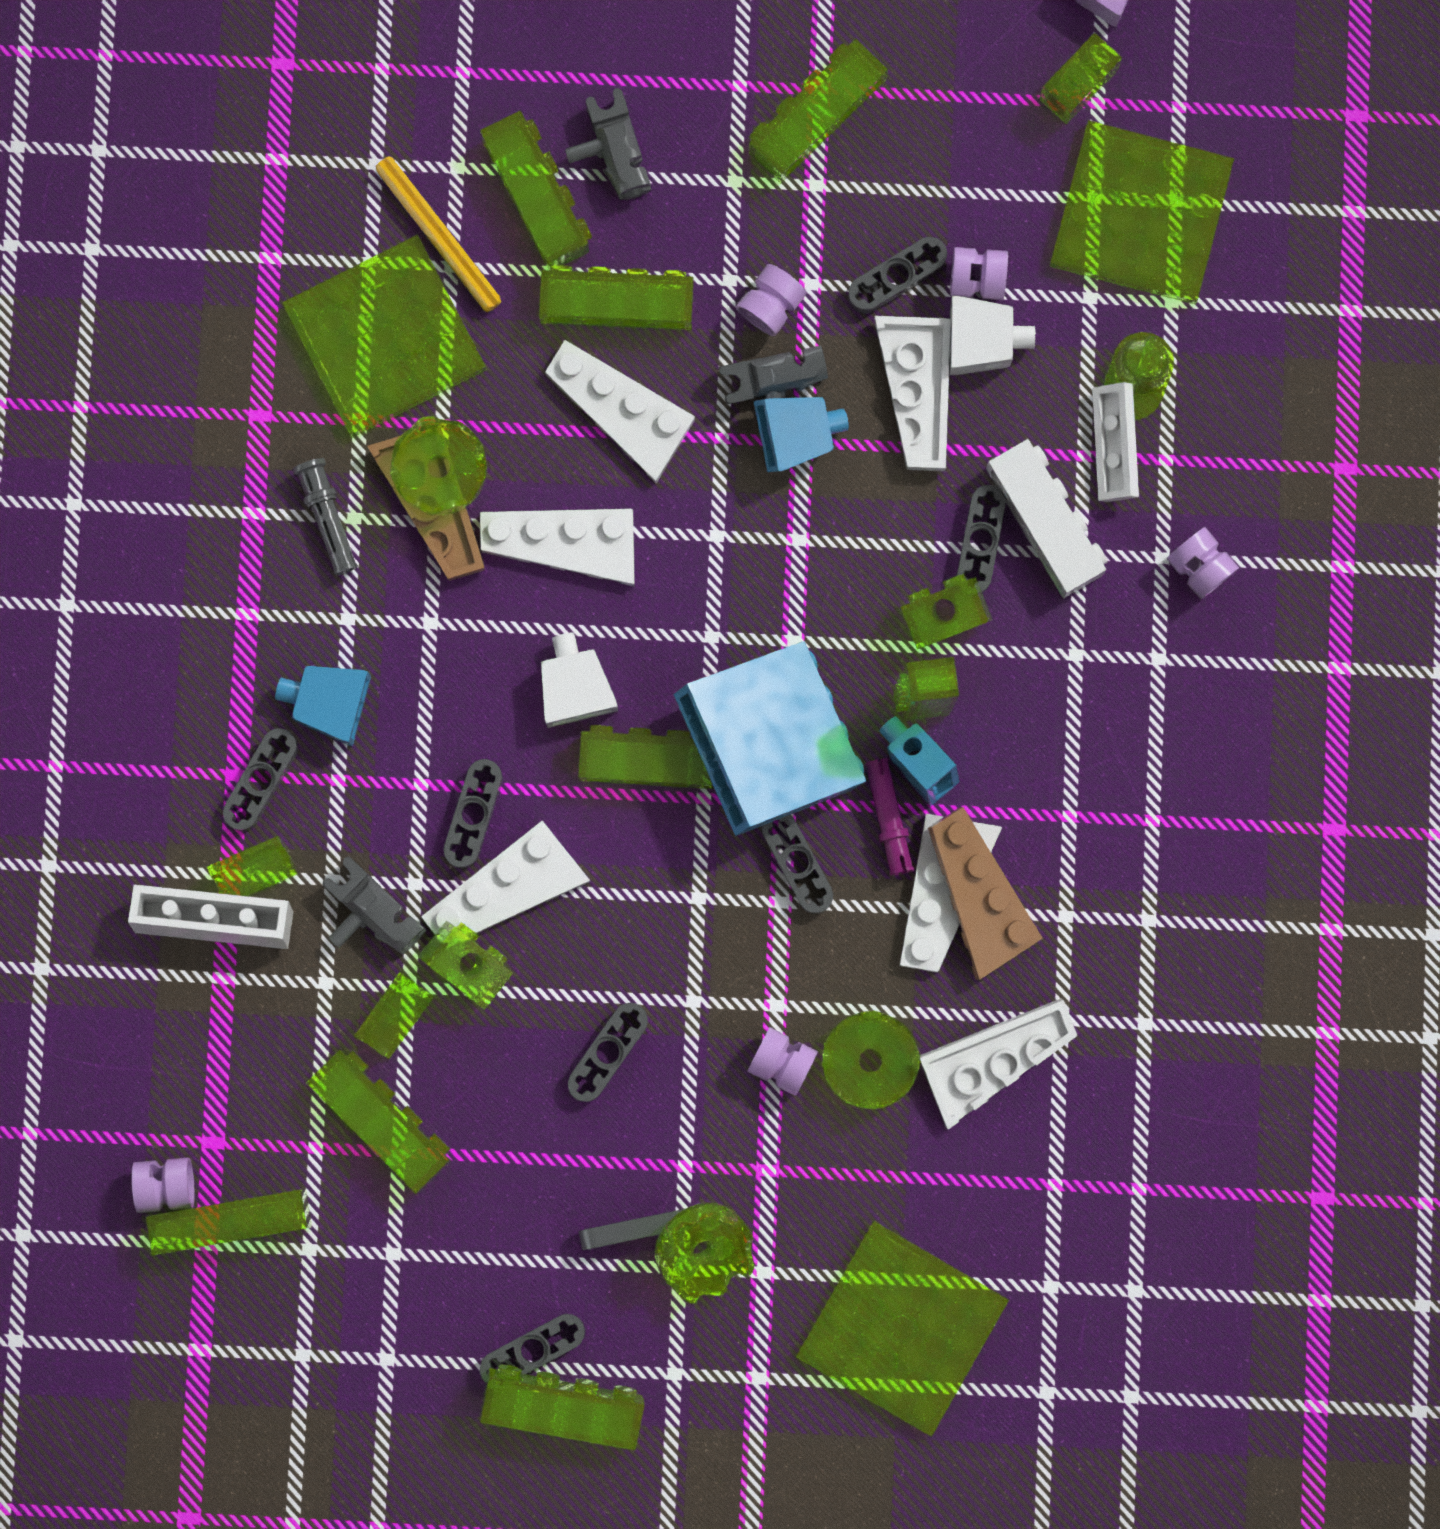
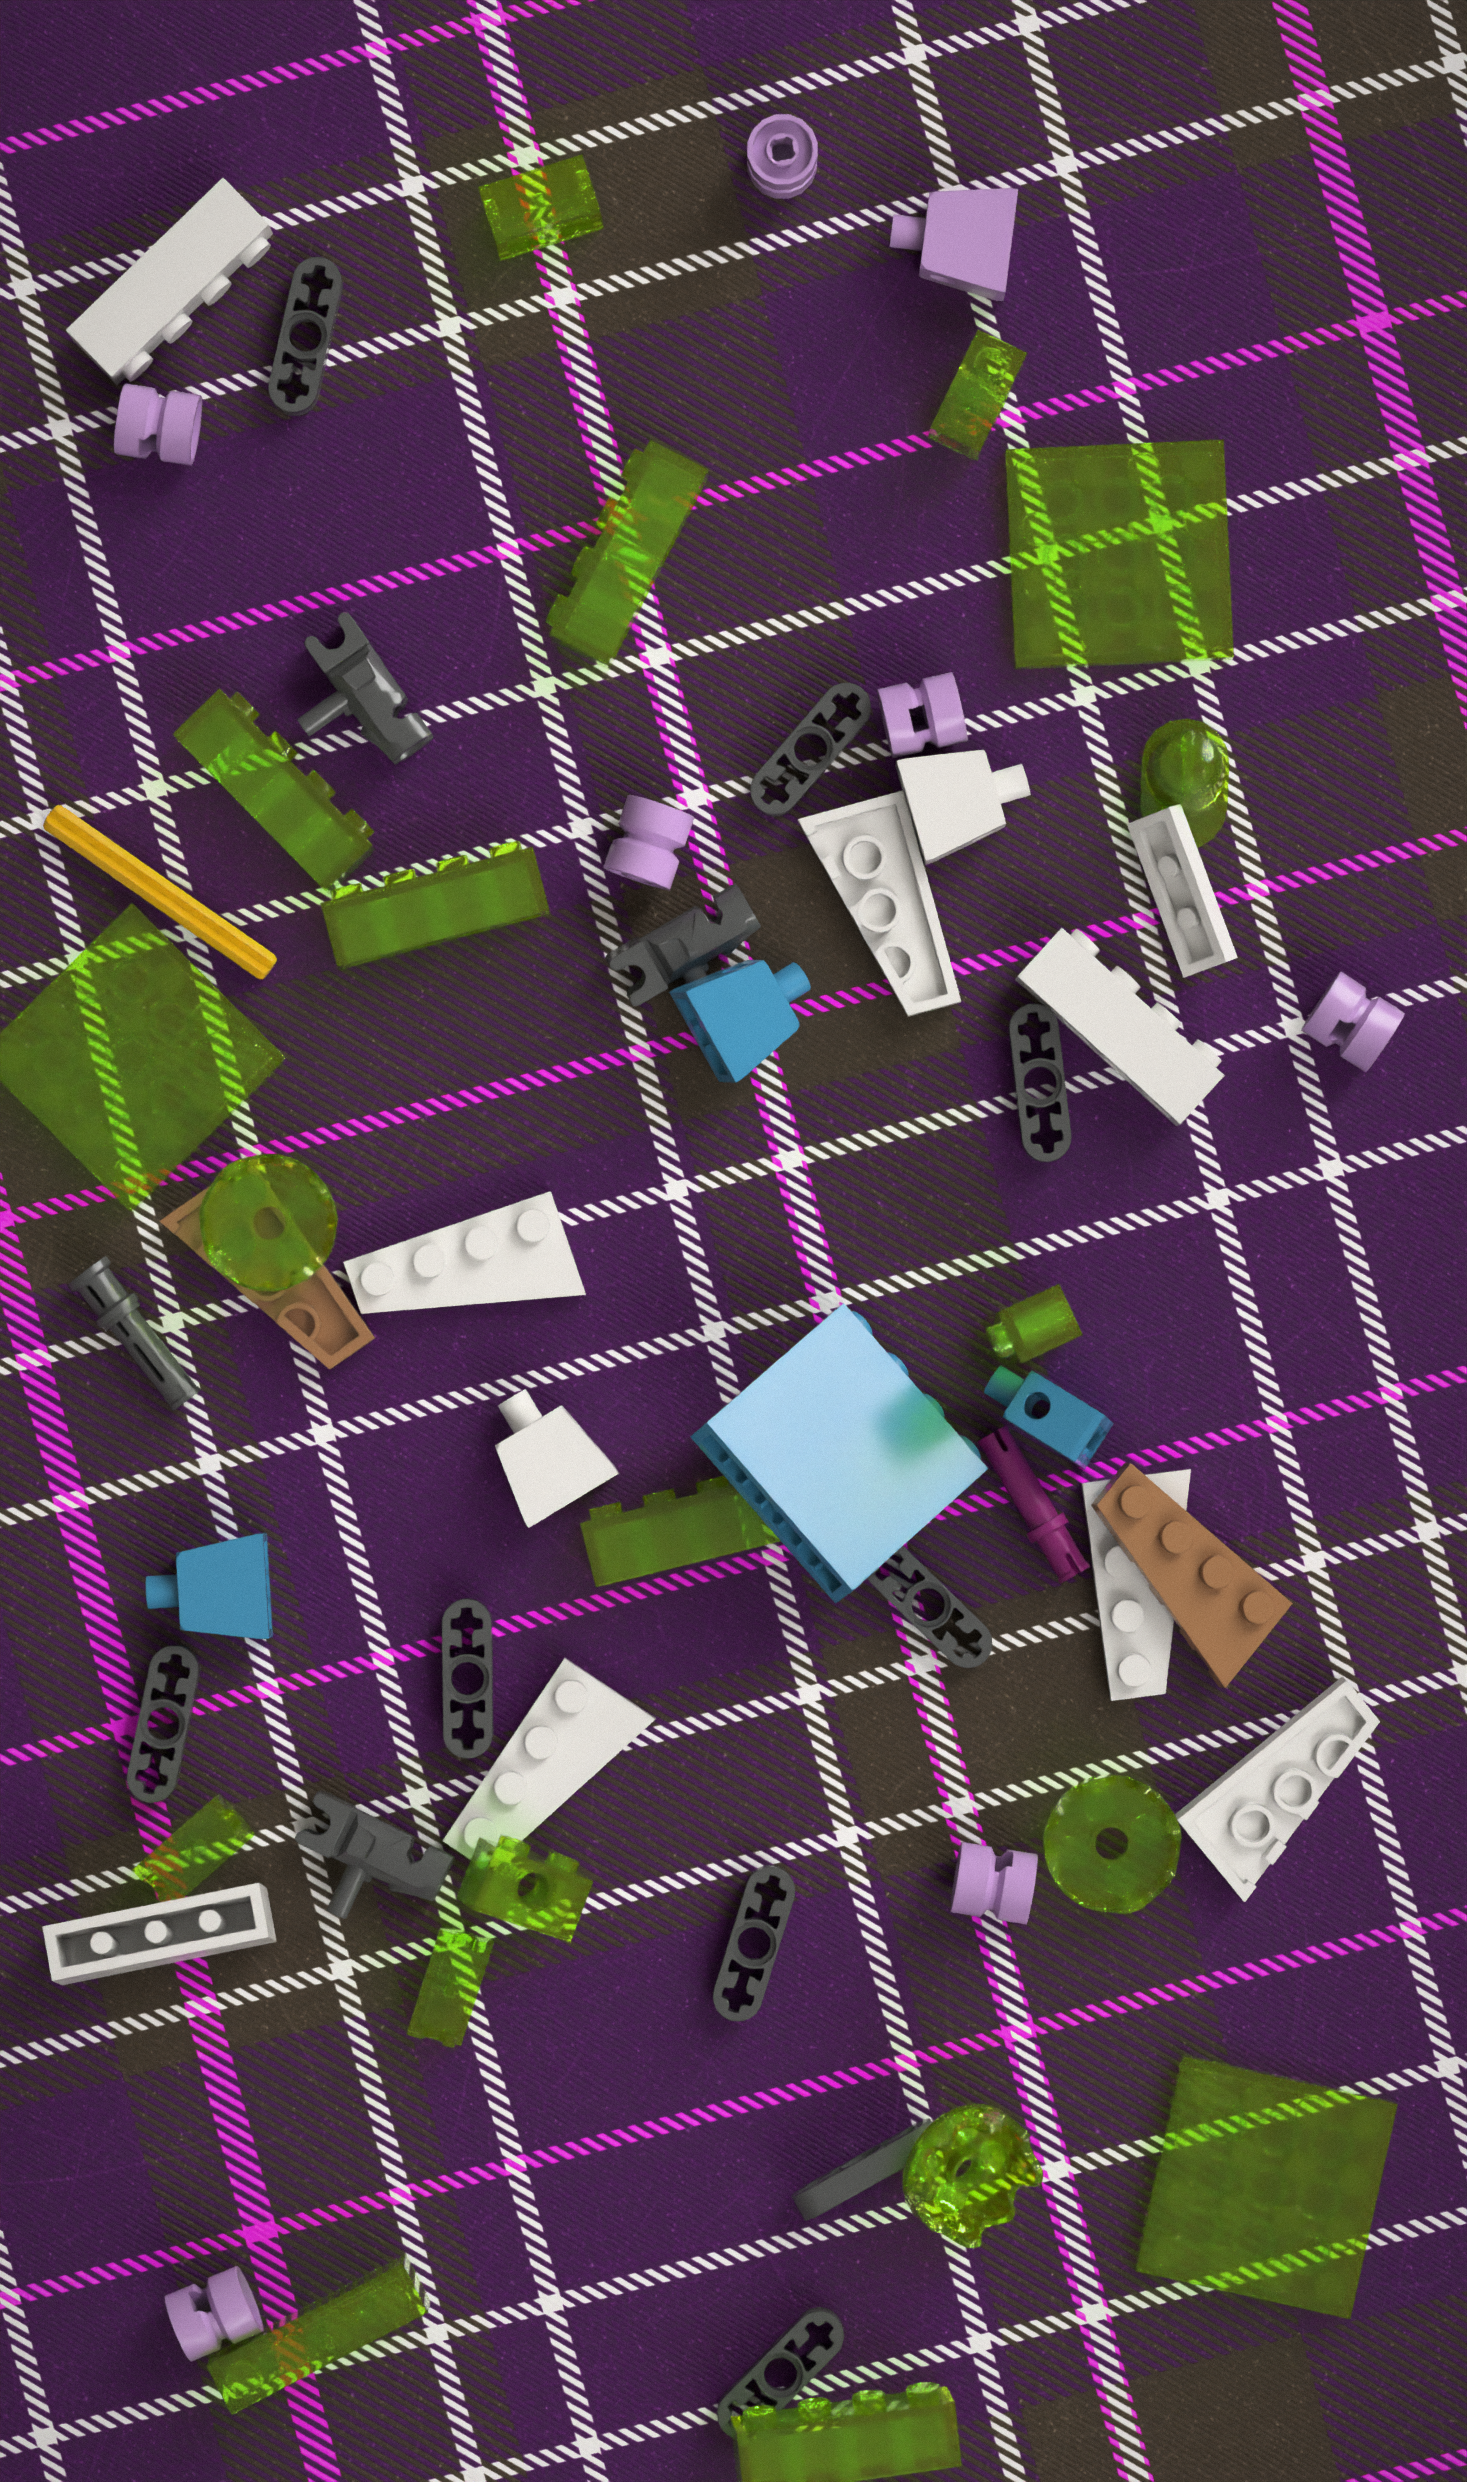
camera: 15 degrees left, 5 degrees up
(379, 1121) = (477, 2134): clear neon green brick -> none
(626, 411) = (502, 1058): white wing -> none
(929, 628) = (1009, 1230): clear neon green brick -> none

